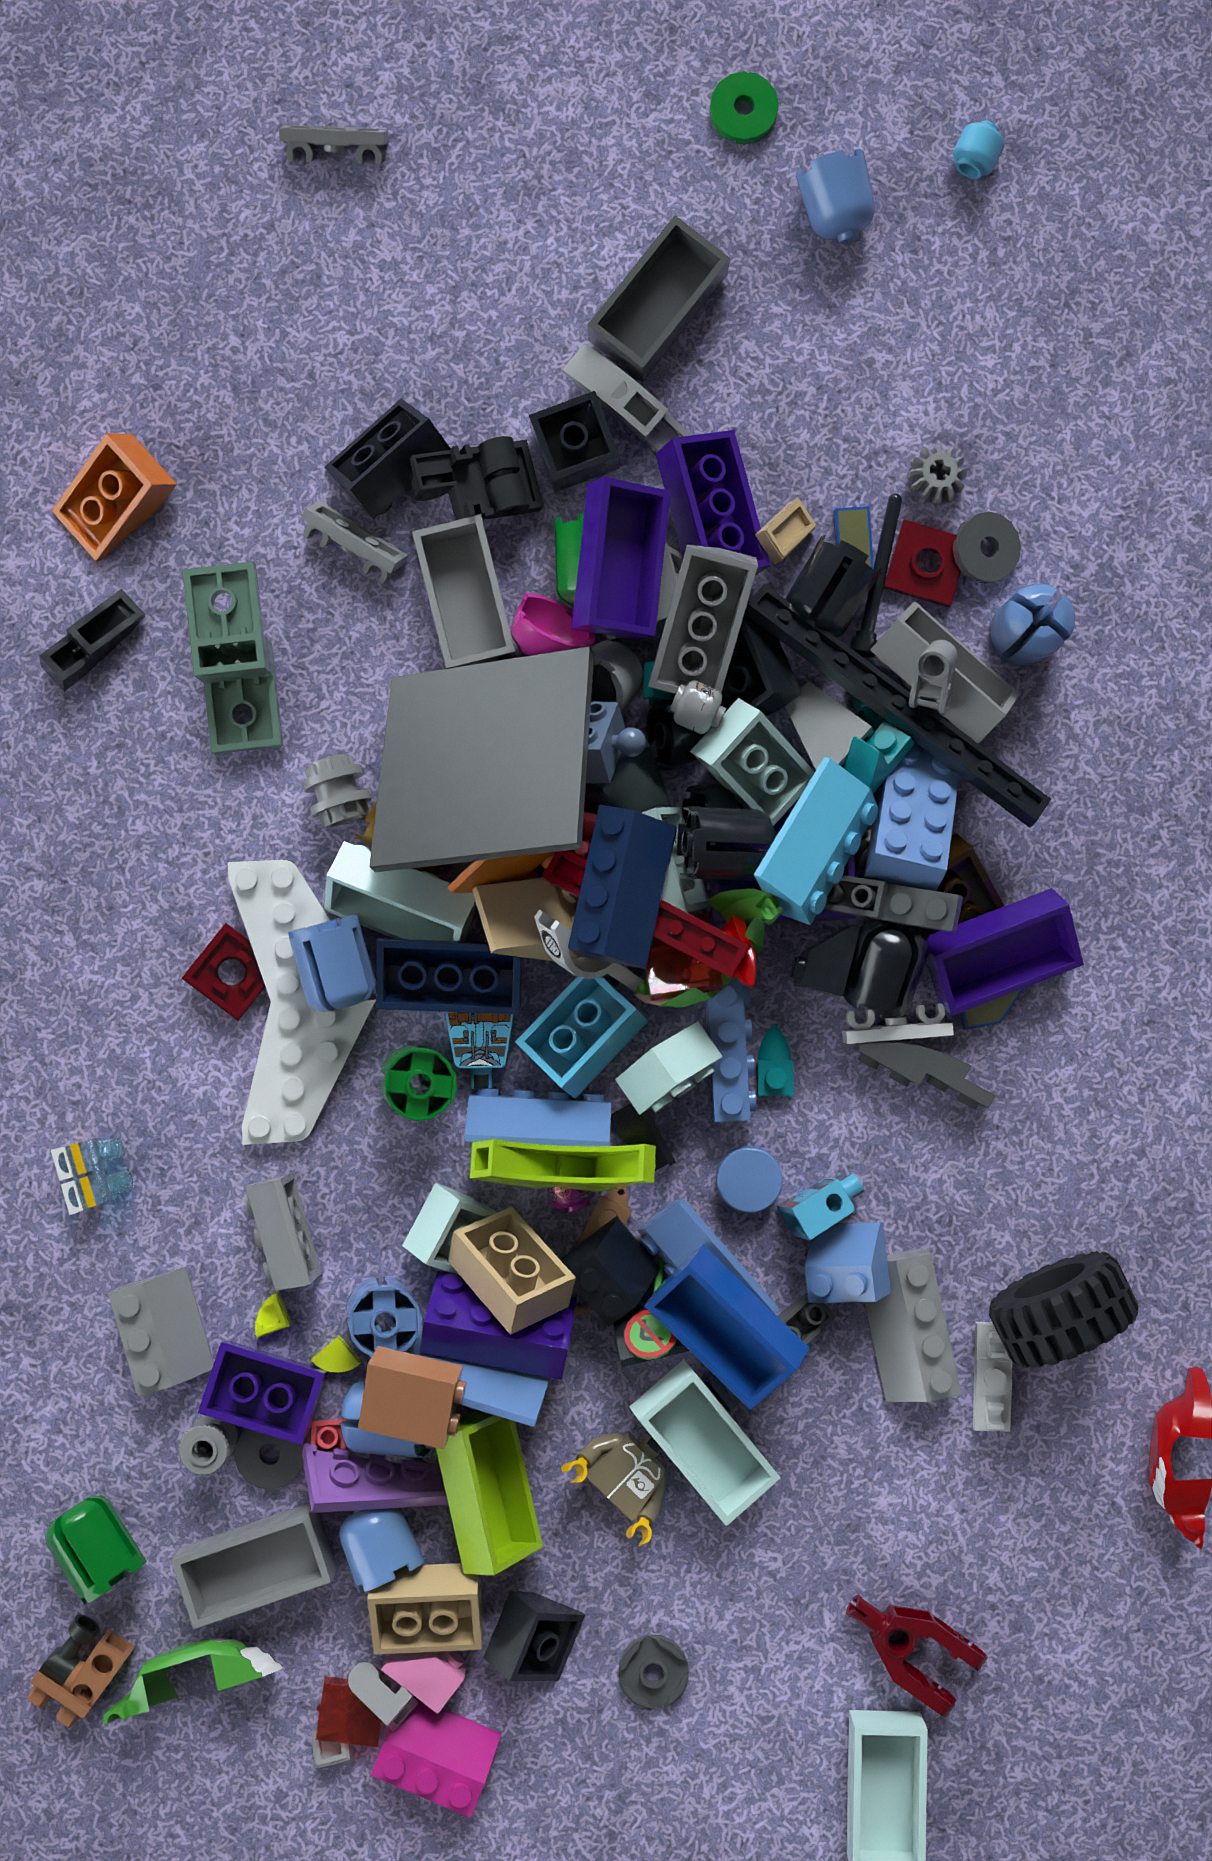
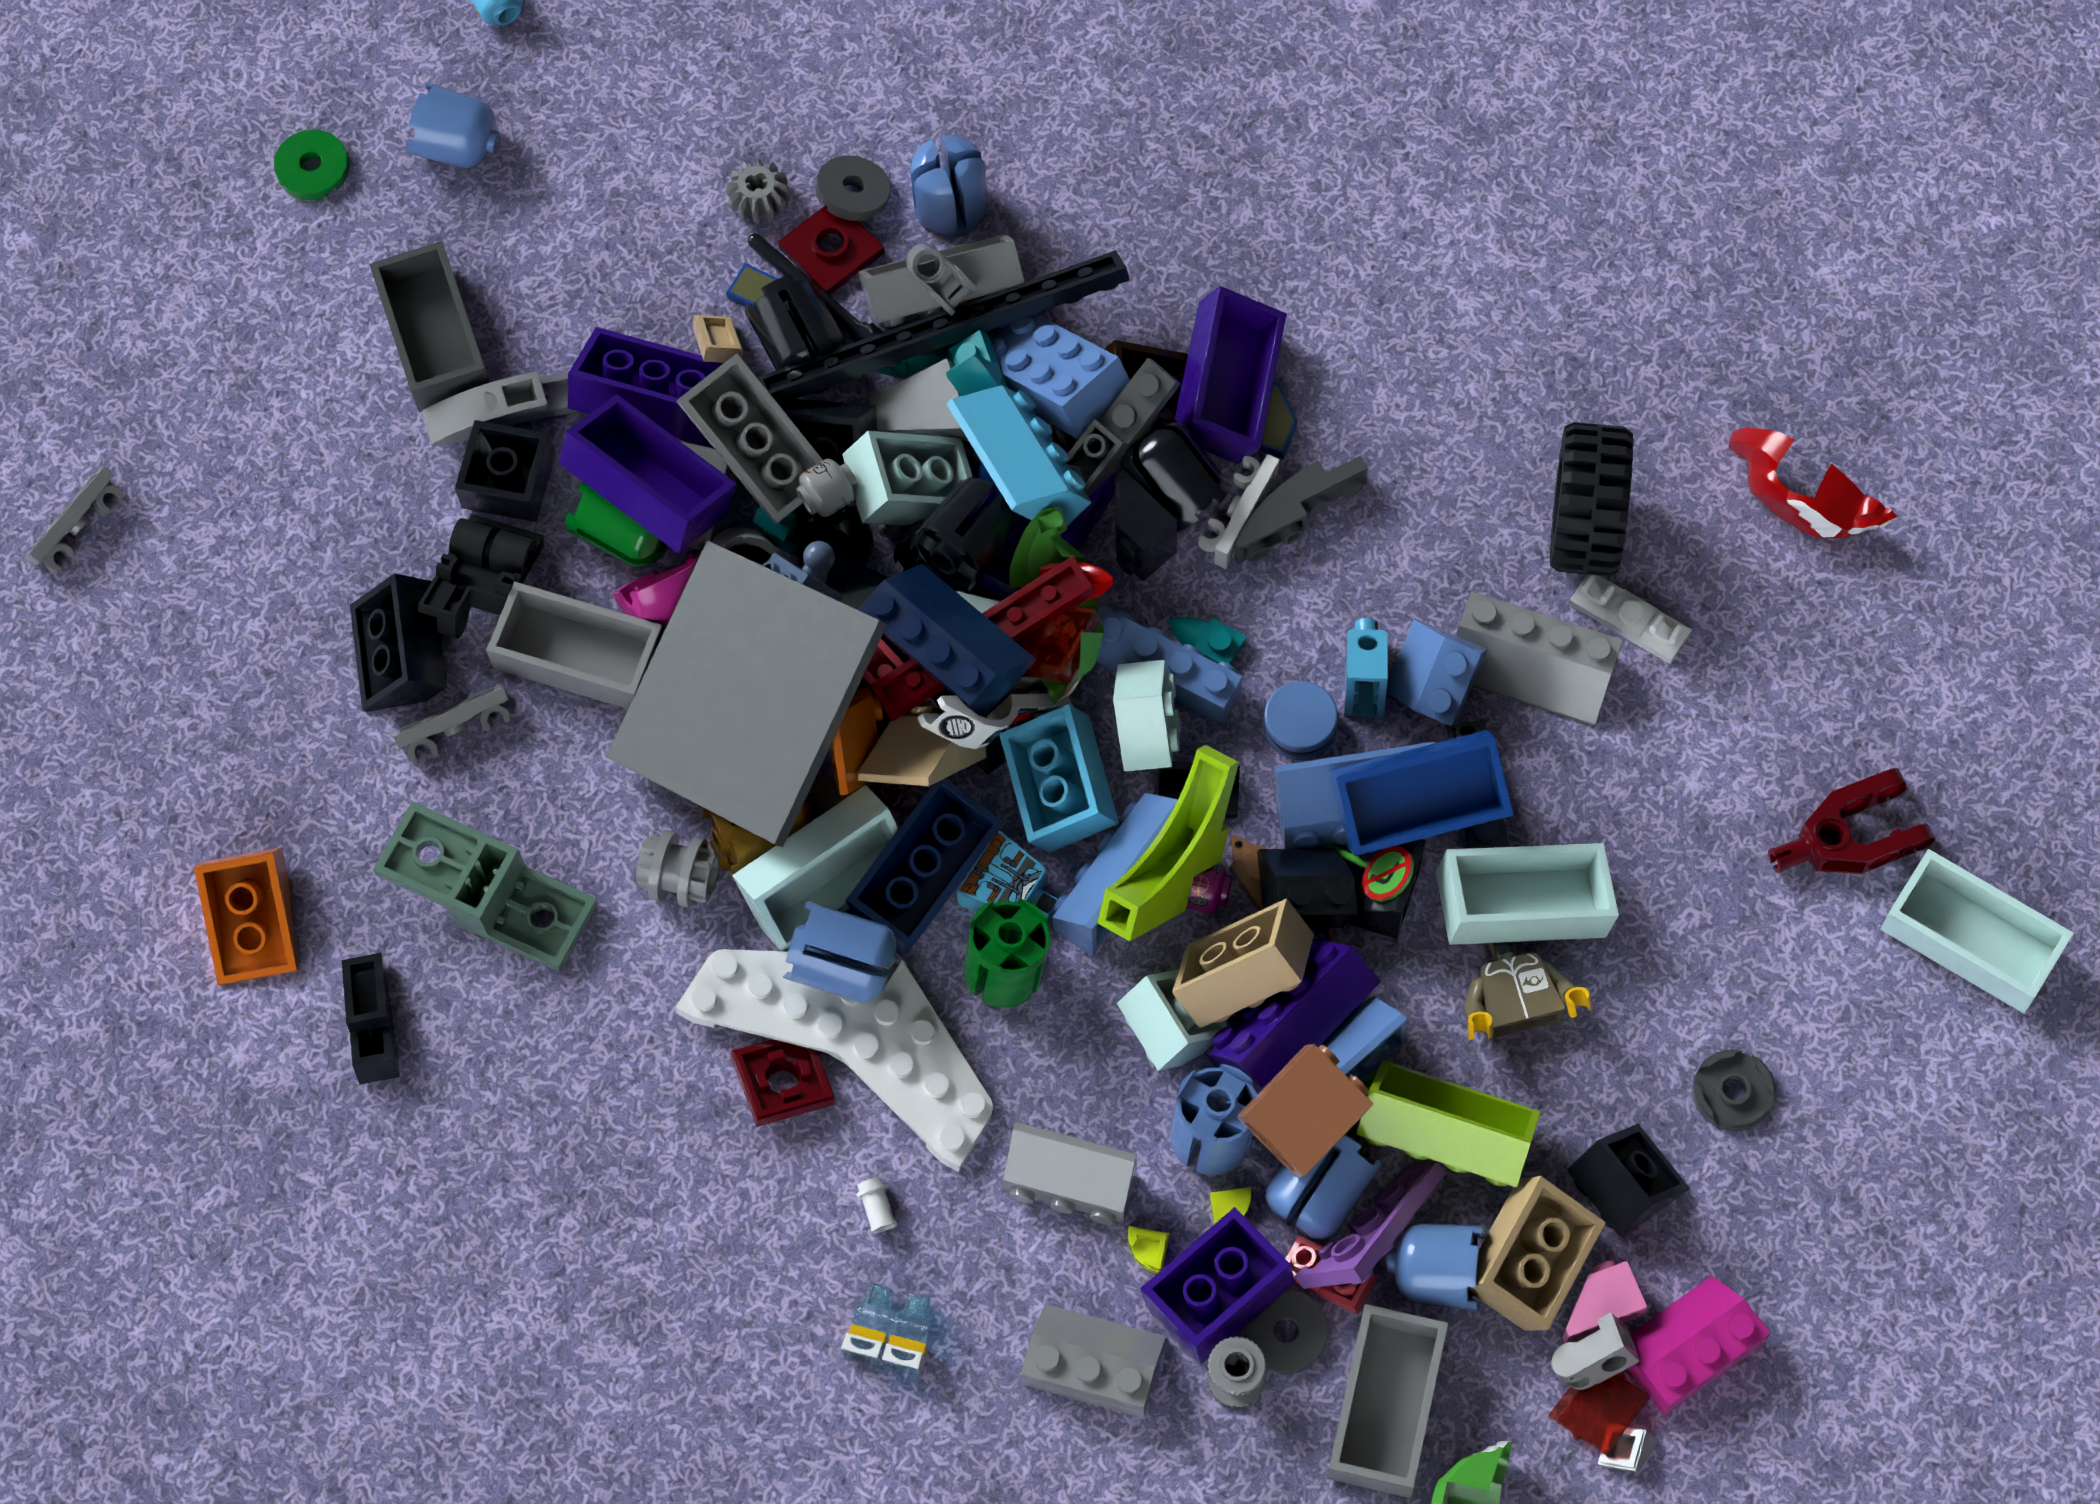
camera: 55 degrees left, 20 degrees down
(181, 1101) = (876, 1204): none -> white pin

